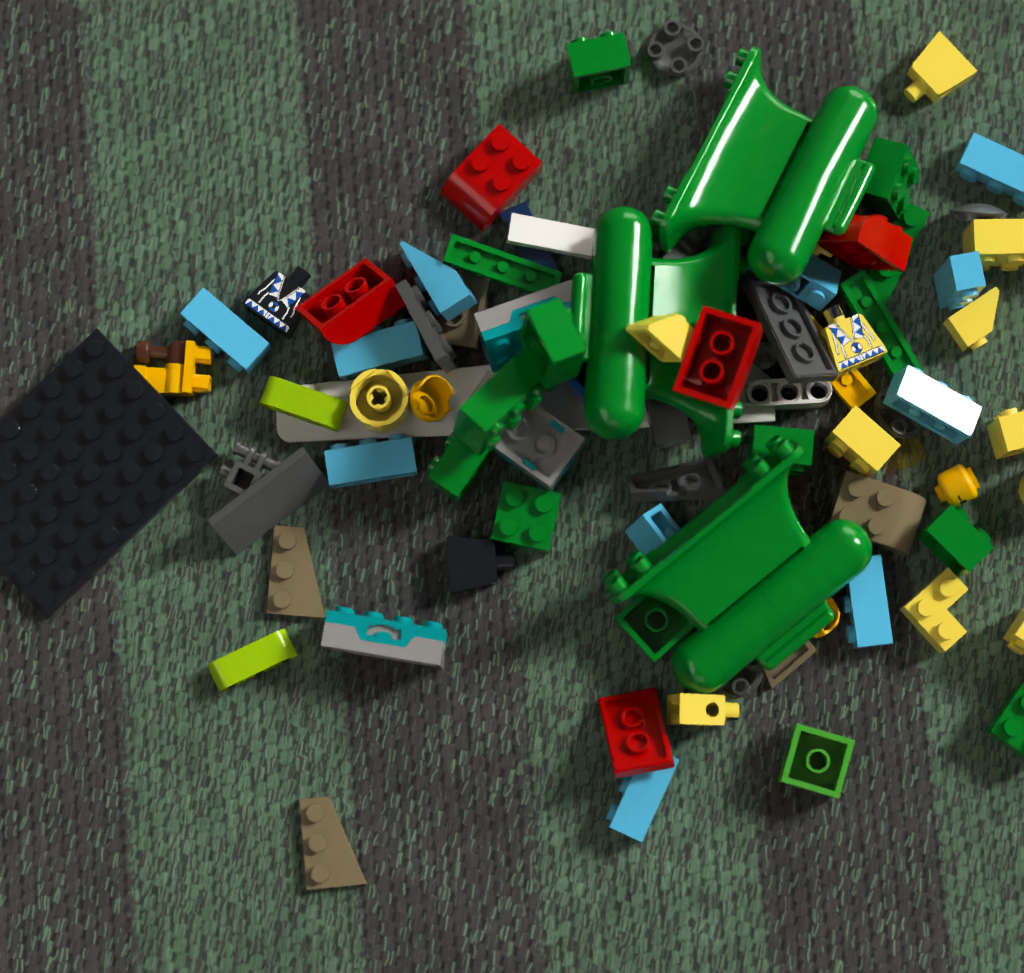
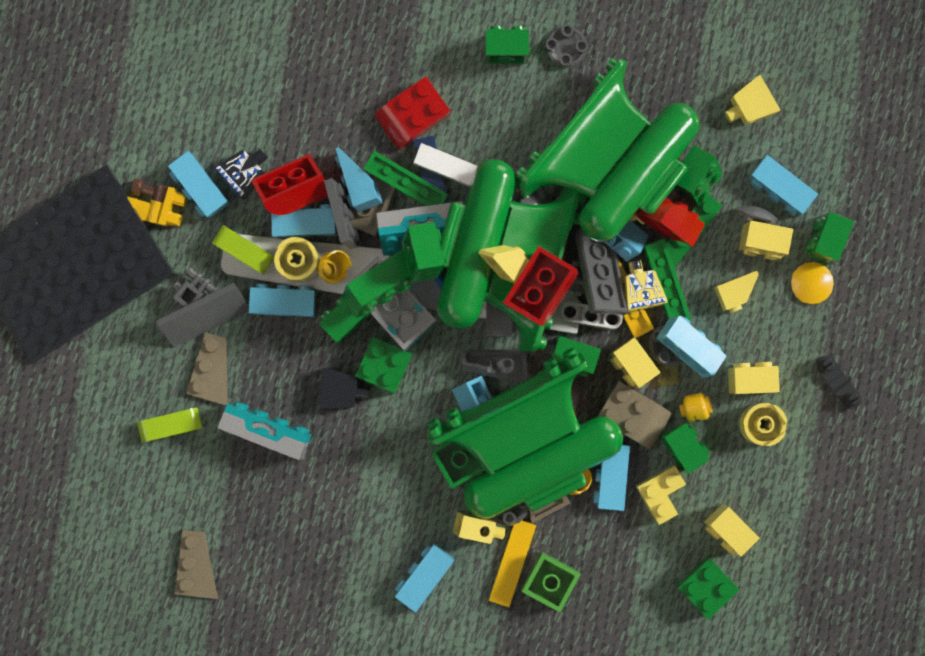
camera: 10 degrees right, 5 degrees up
(635, 733) = (427, 535): red tile -> none
(757, 749) = (512, 563): none -> yellow tile
(959, 280) = (730, 262): medium azure brick -> none

